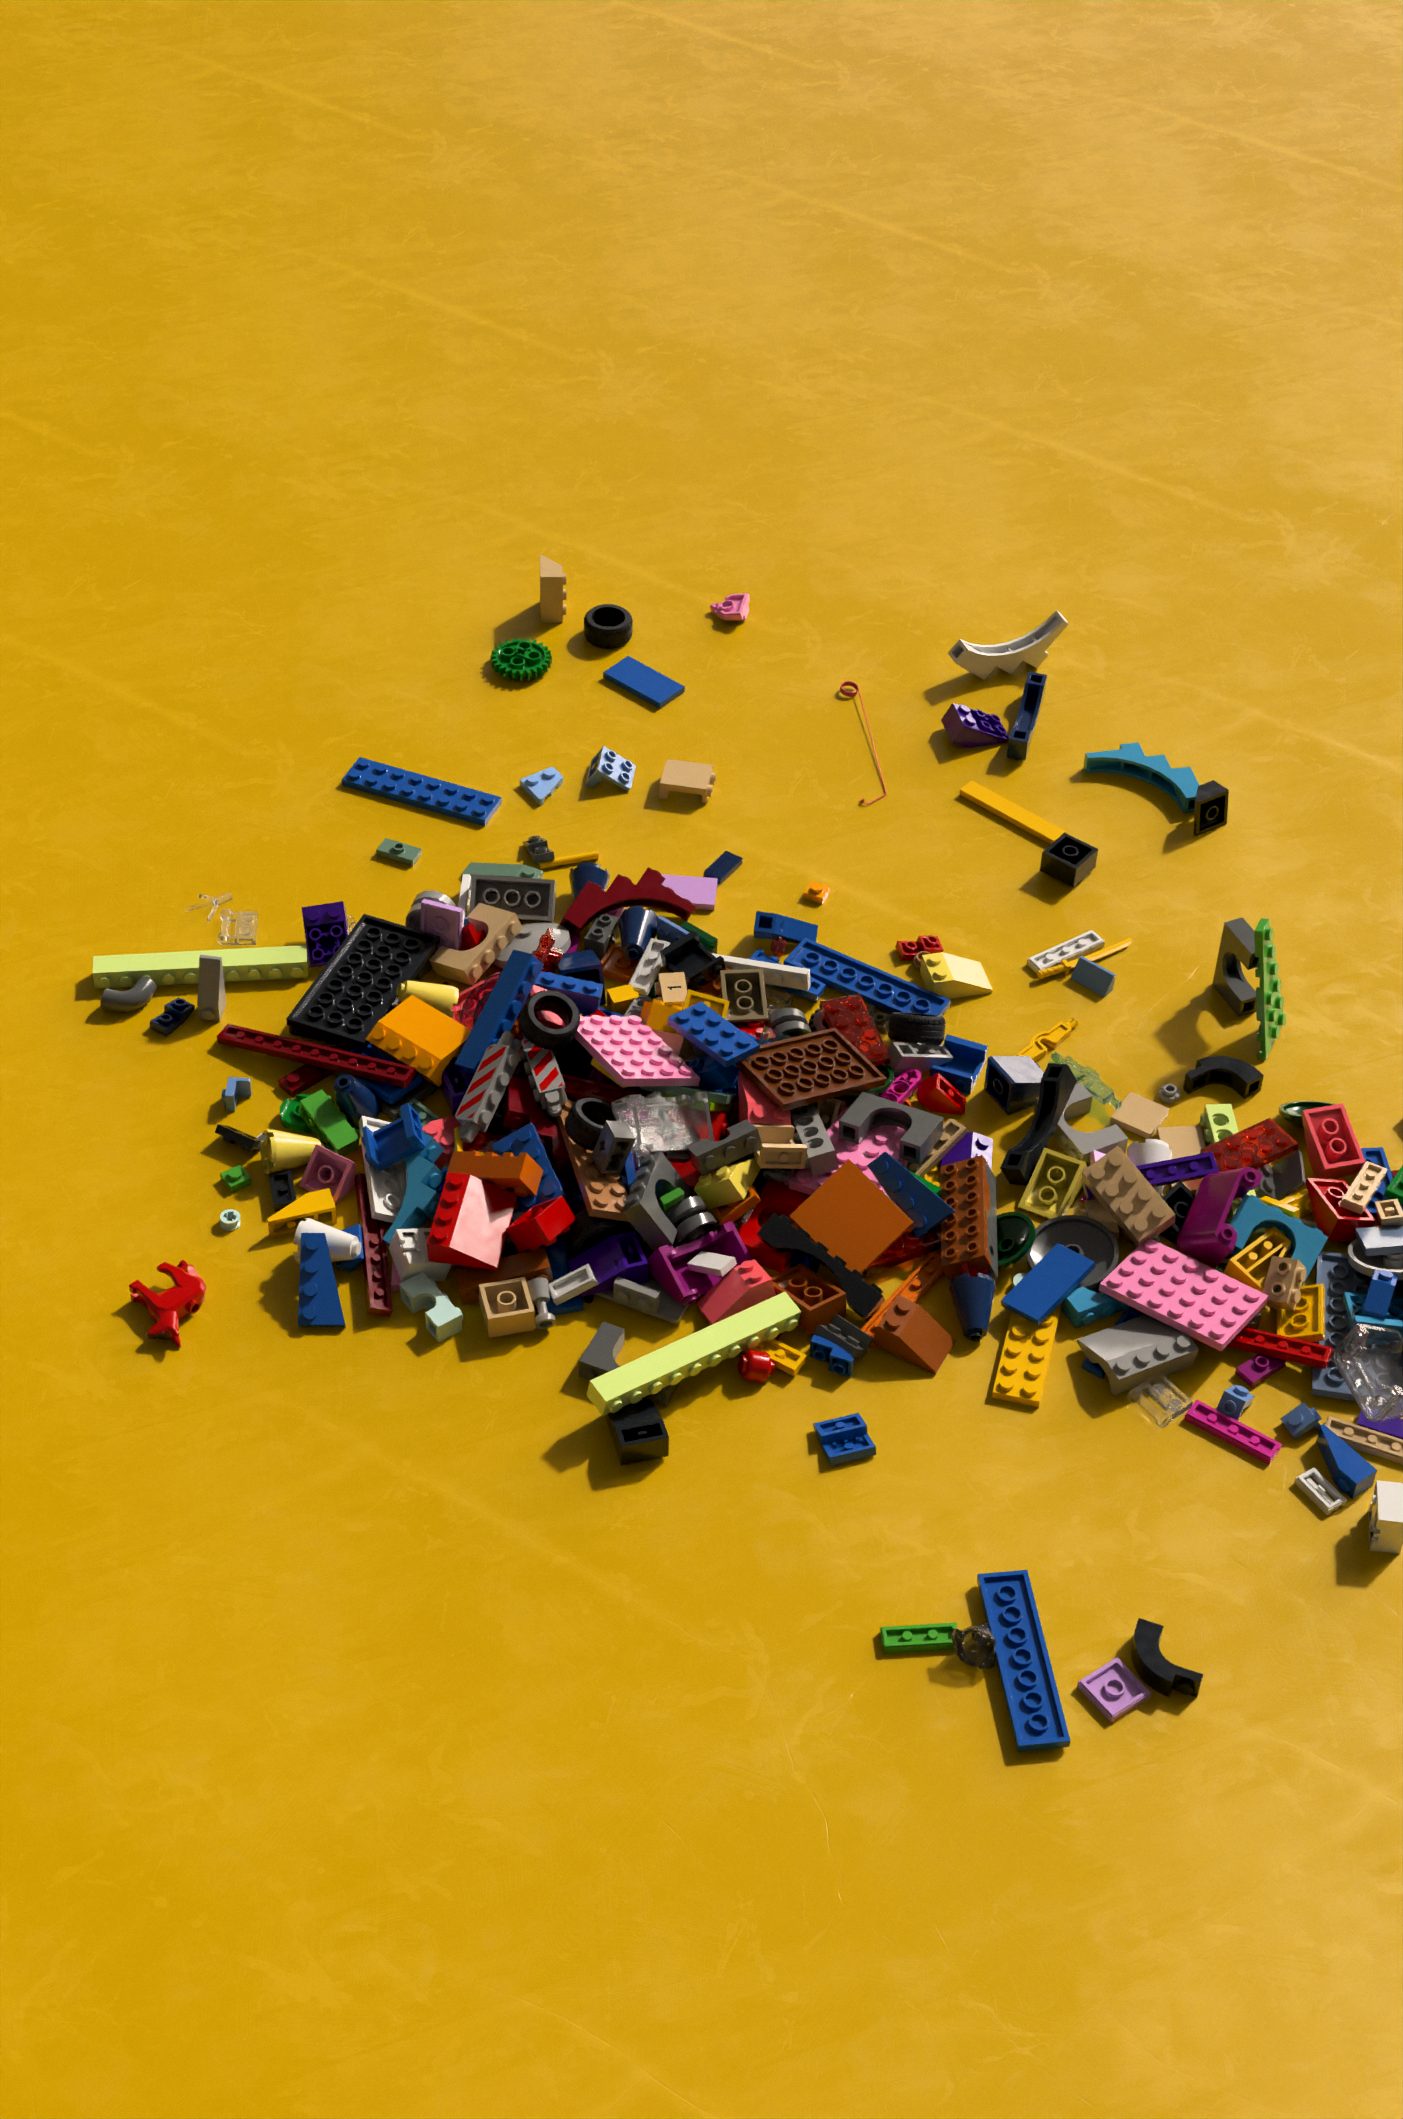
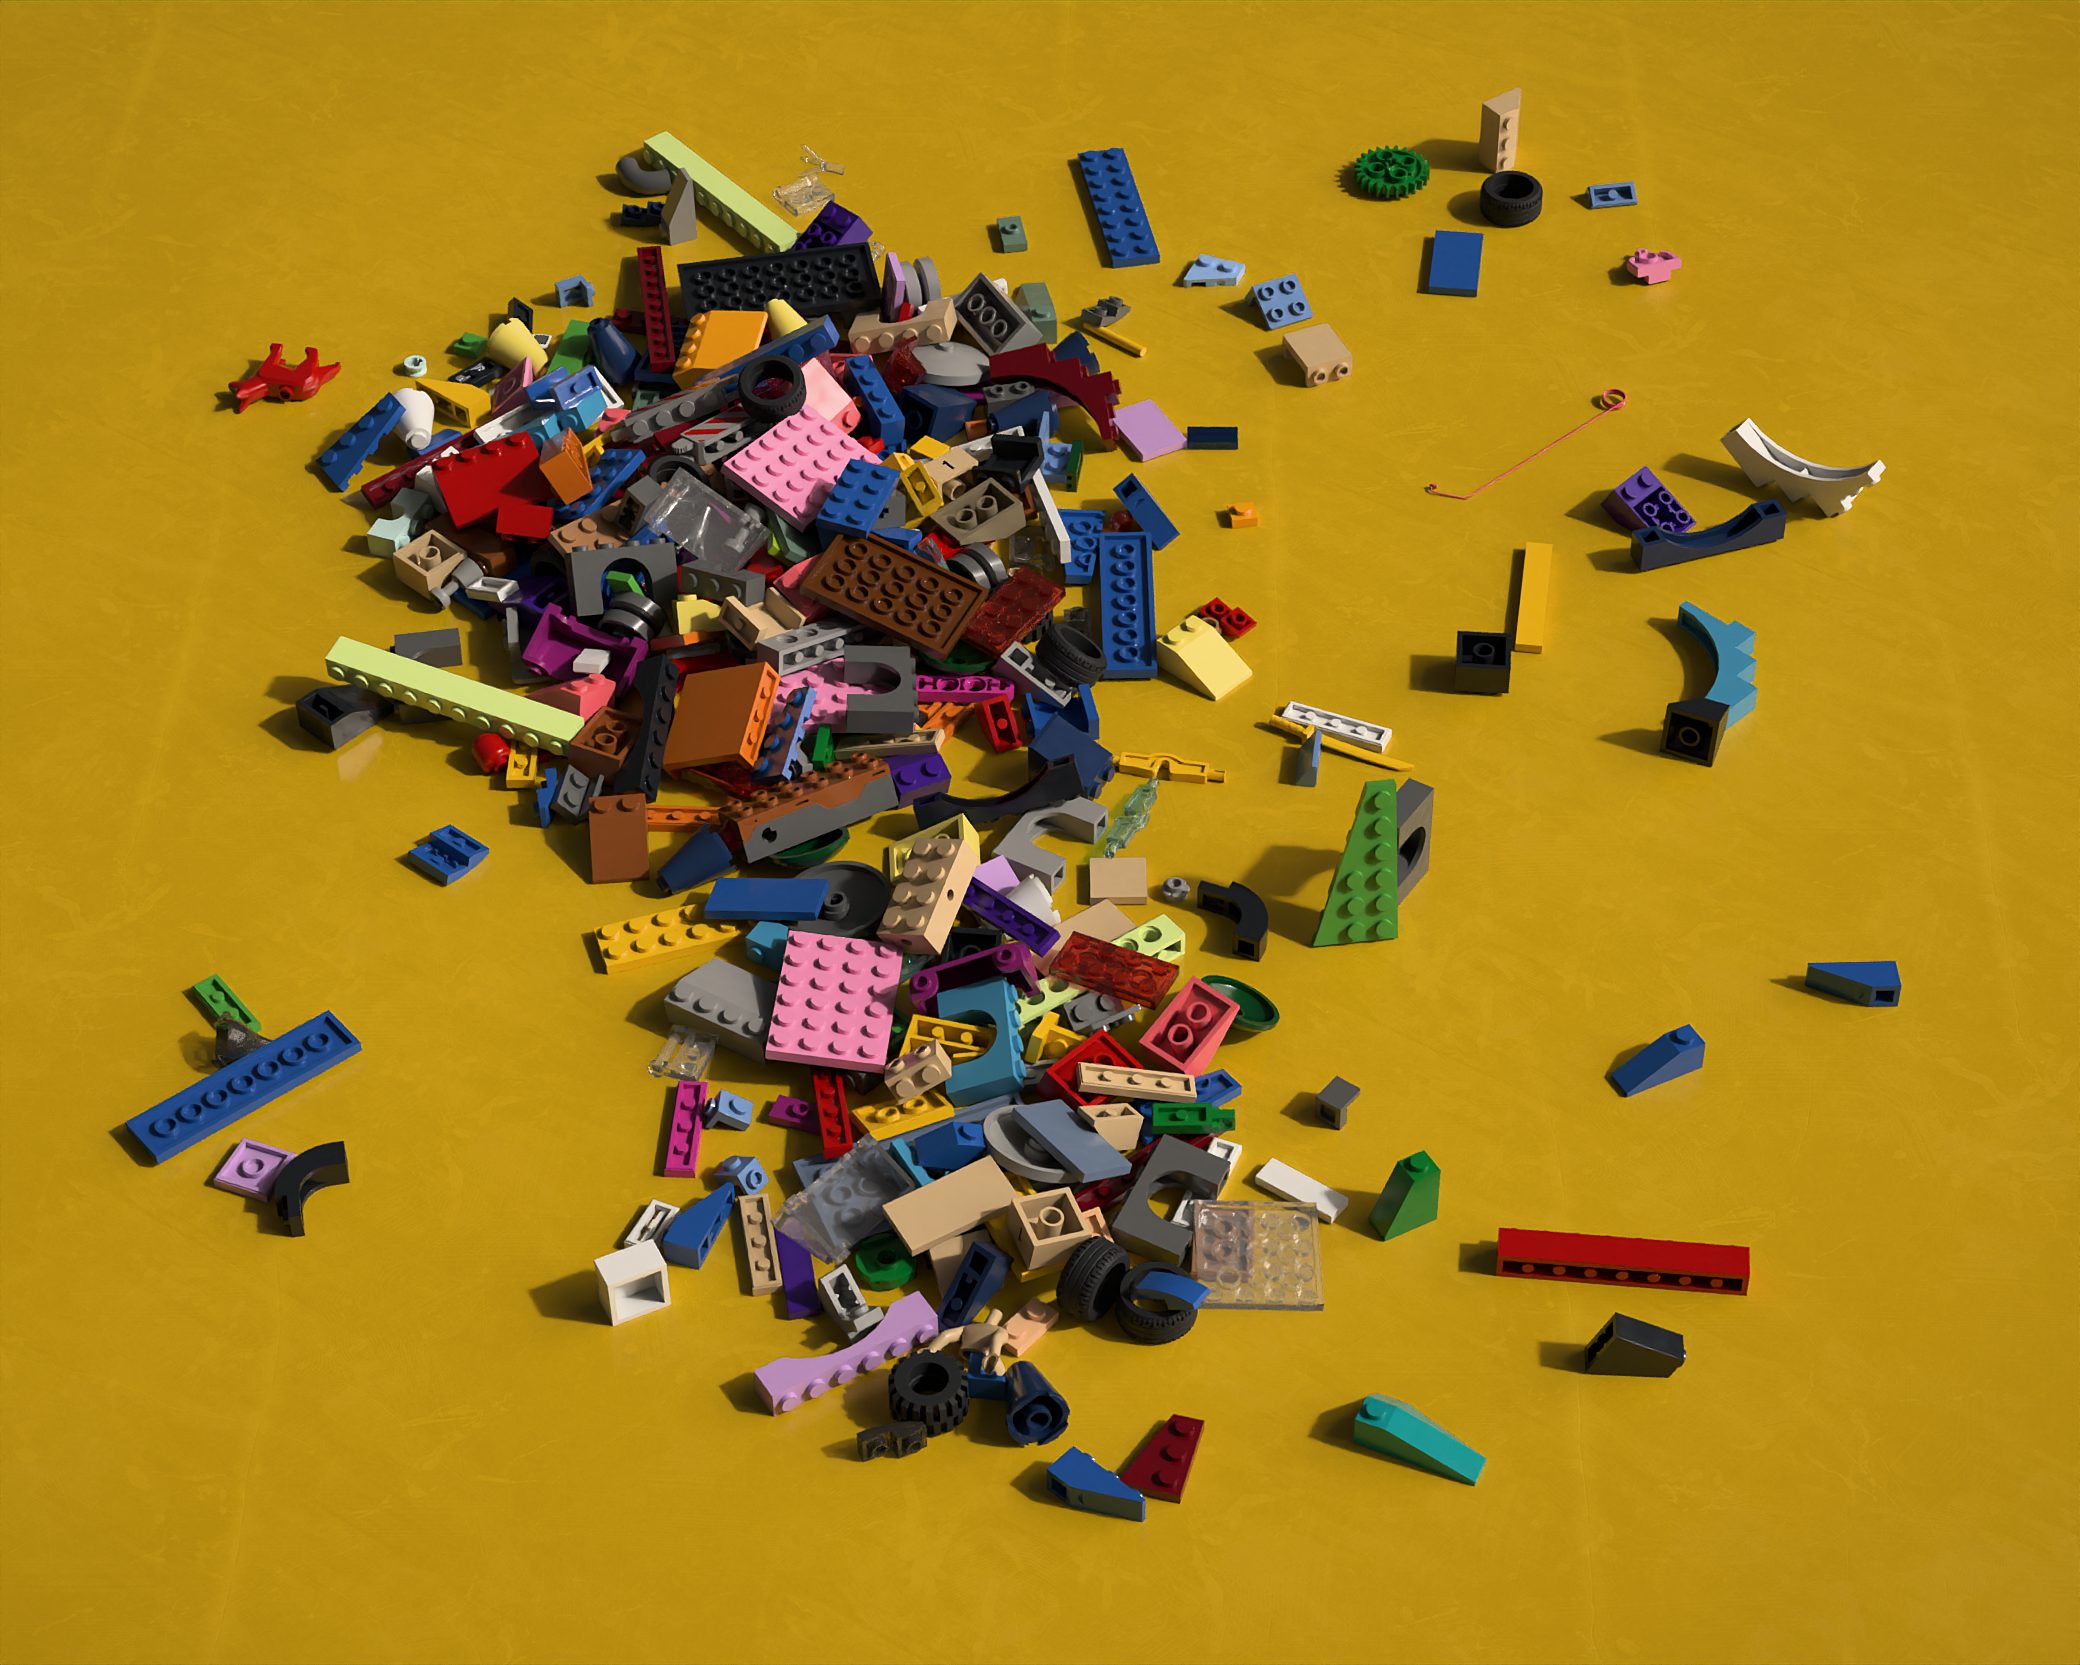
camera: 60 degrees right, 0 degrees up
(641, 589) = (1611, 195): none -> medium blue slope

